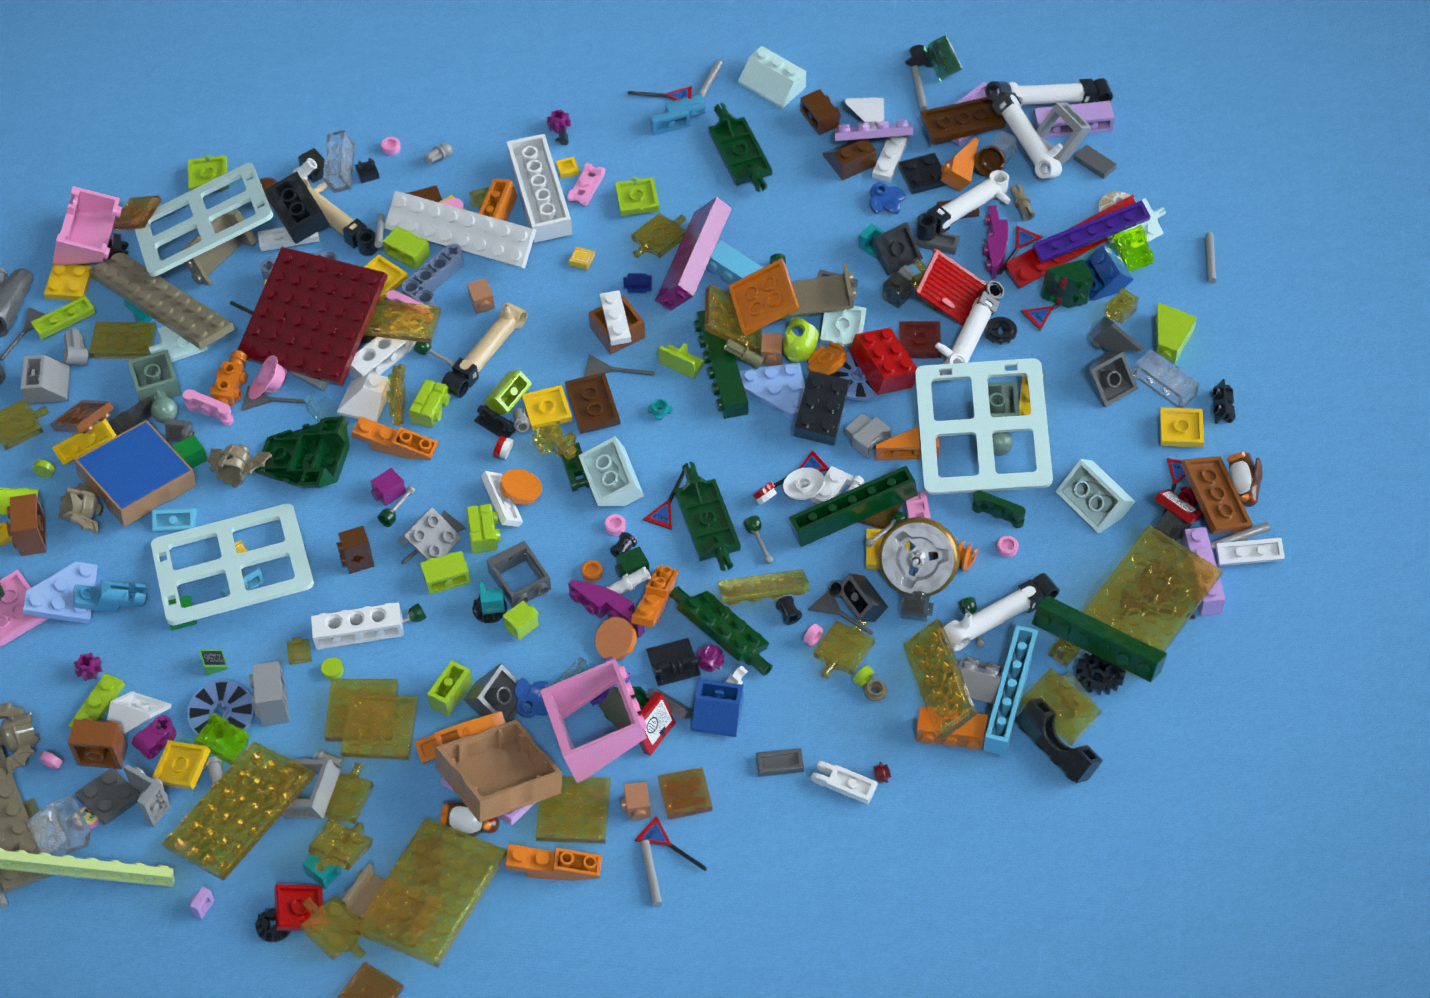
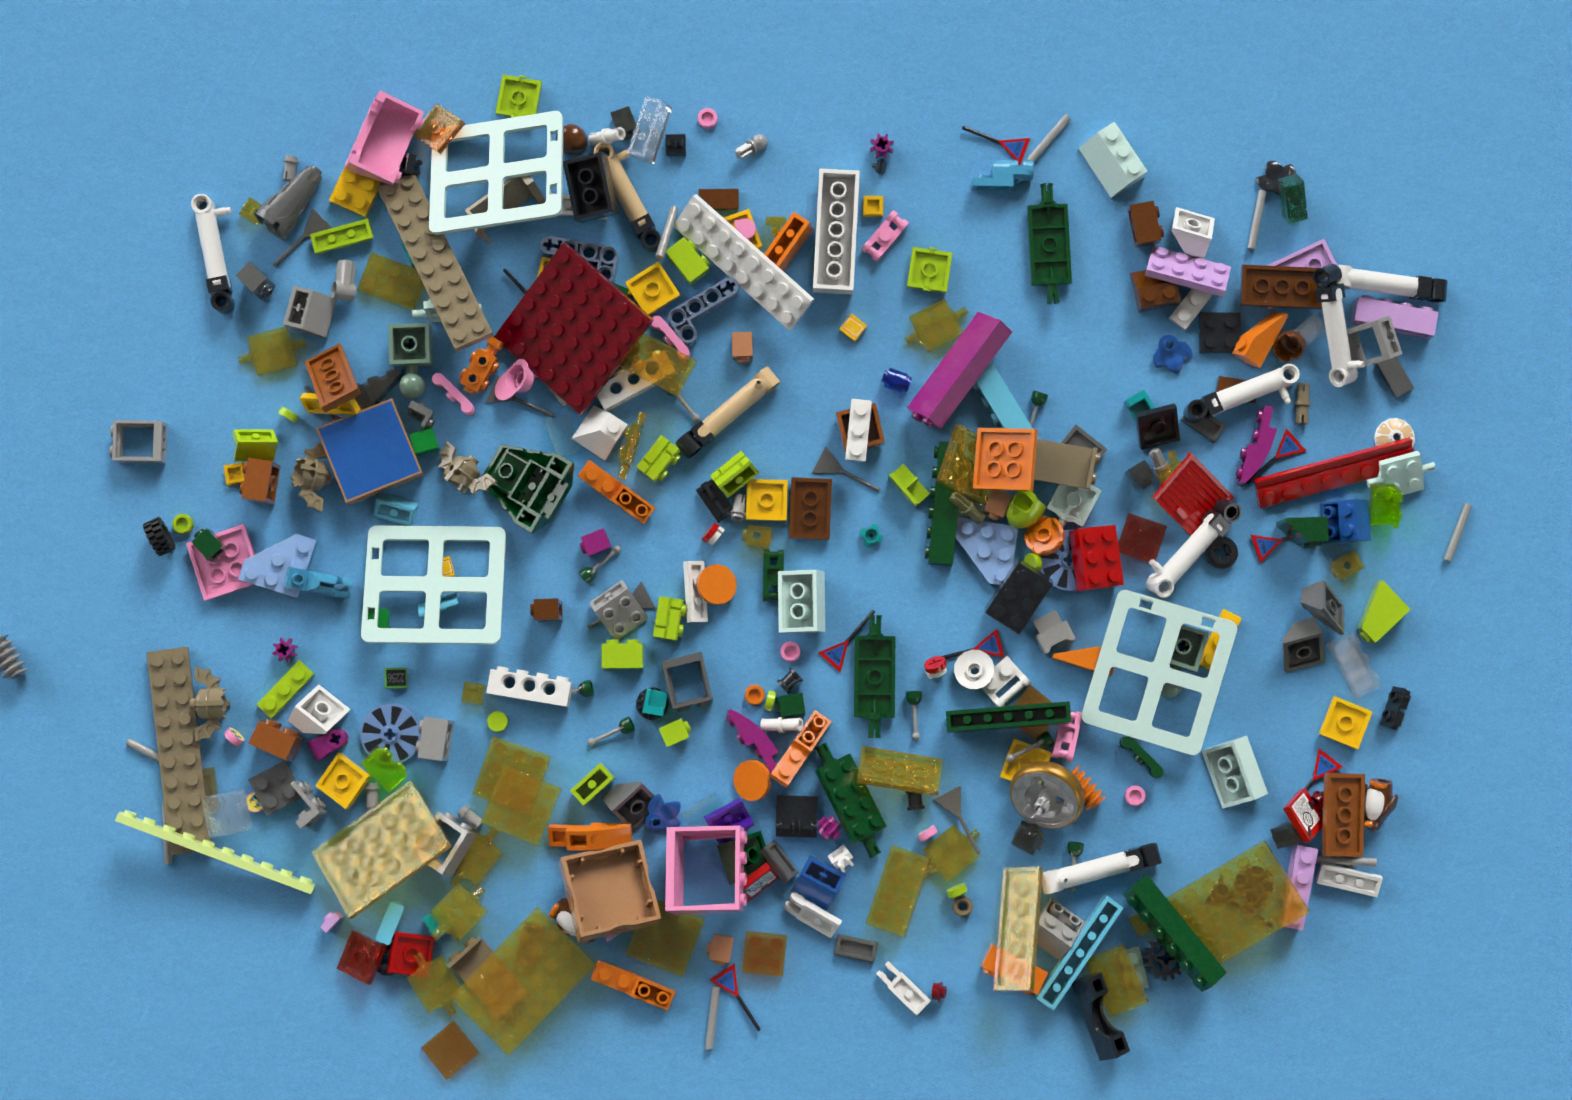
camera: 20 degrees right, 30 degrees up
(244, 924) = (361, 957): none -> clear red plate
(266, 881) = (390, 922): none -> medium azure slope
(467, 633) = (625, 726): none -> hinge
(565, 446) = (768, 558): clear yellow tile -> none
(609, 568) = (770, 701): none -> lime tile
(724, 742) = (812, 915): none -> white hinge
(803, 693) = (898, 891): none -> clear yellow plate
(859, 596) = (981, 810): black hinge -> none
(1091, 231) = (1350, 480): dark purple plate -> none

